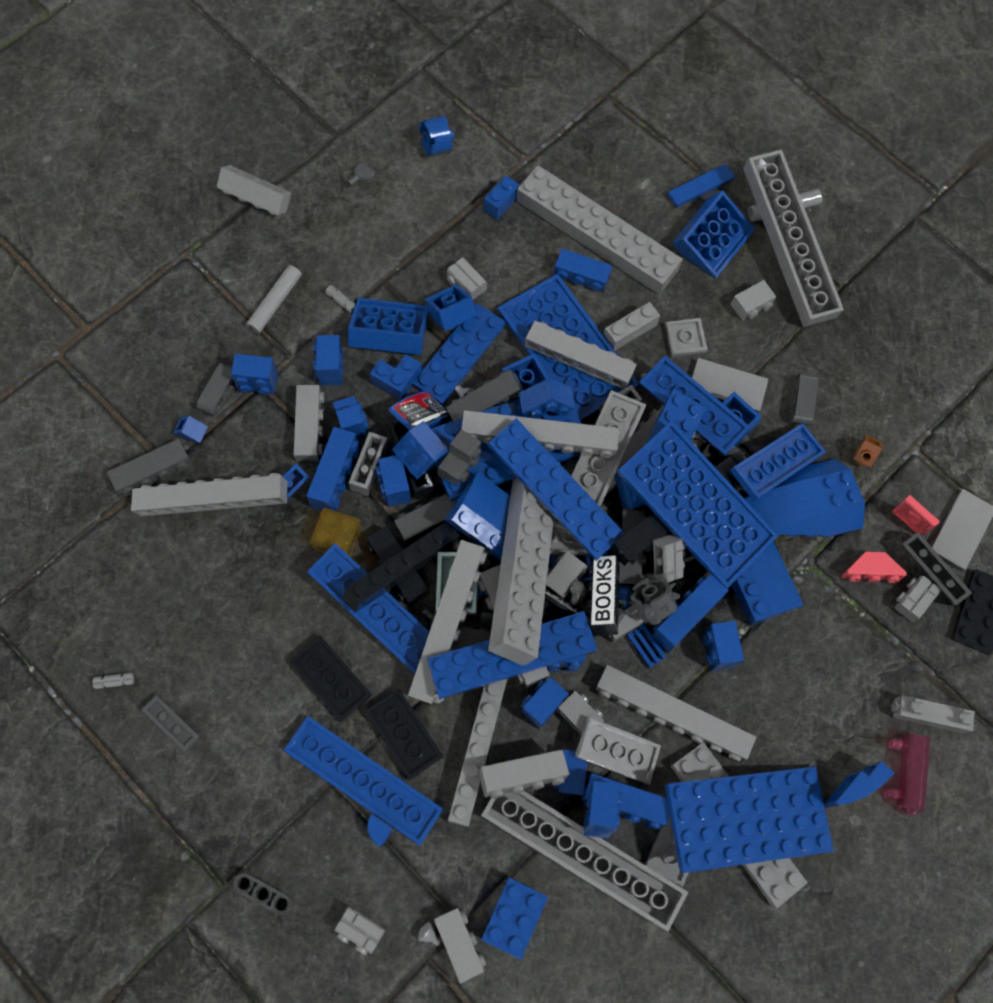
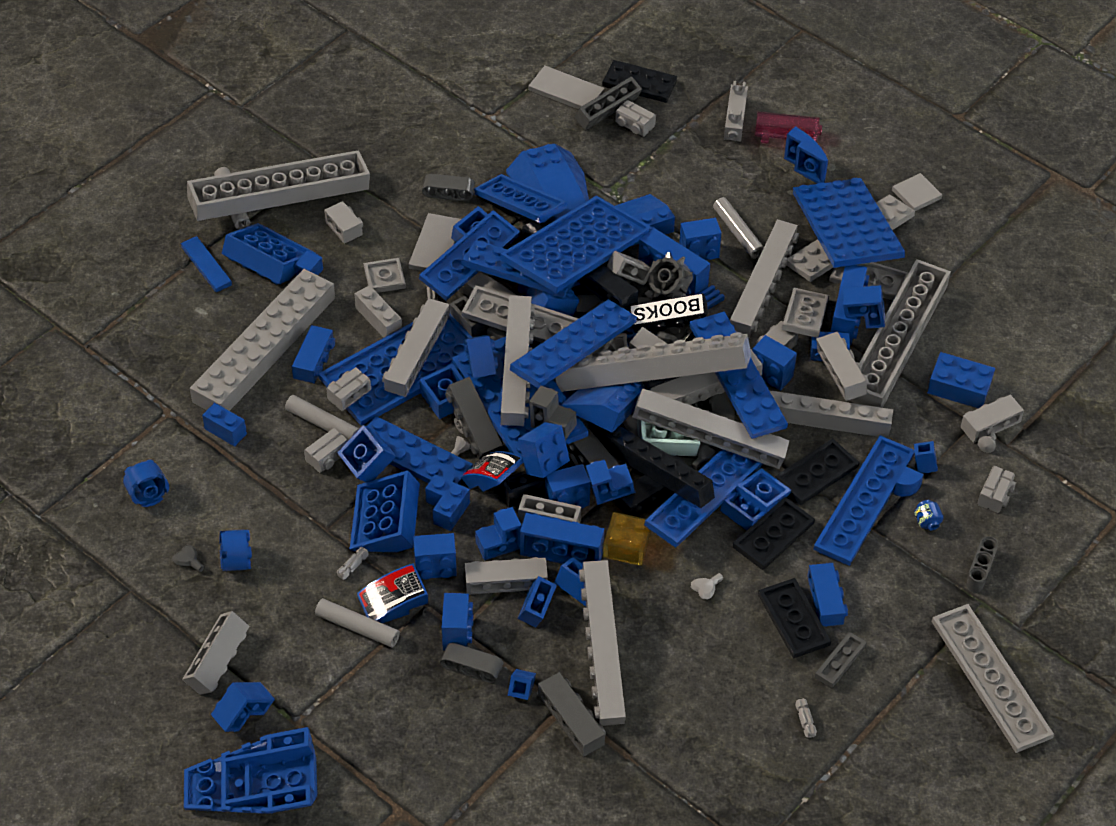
camera: 90 degrees left, 20 degrees down
(124, 221) = (258, 778): none -> blue wedge
(125, 877) = (992, 678): none -> light grey plate
(197, 206) = (239, 703): none -> blue brick
(226, 684) = (794, 618): none -> black plate
(247, 721) = (827, 594): none -> blue brick
(270, 445) = (537, 601): none -> blue brick
(276, 605) = (705, 586): none -> light grey rock
(297, 328) = (393, 594): none -> slope
(331, 845) = (928, 515): none -> blue head
(356, 202) = (235, 550): none -> blue brick
(374, 665) = (754, 498): none -> blue slope
(388, 511) = (609, 483): none -> blue brick
(405, 854) = (925, 457): none -> blue brick
(504, 277) = (319, 417): none -> light grey piece
(530, 293) = (348, 388): none -> light grey brick
(694, 269) = (310, 262): none -> blue brick
(751, 695) = (738, 227): none -> light grey piece
(814, 919) = (917, 192): none -> light grey tile
(868, 451) = (500, 143): dark orange brick -> none
(874, 567) = (610, 145): coral slope -> none
(915, 516) = (561, 112): coral plate -> none

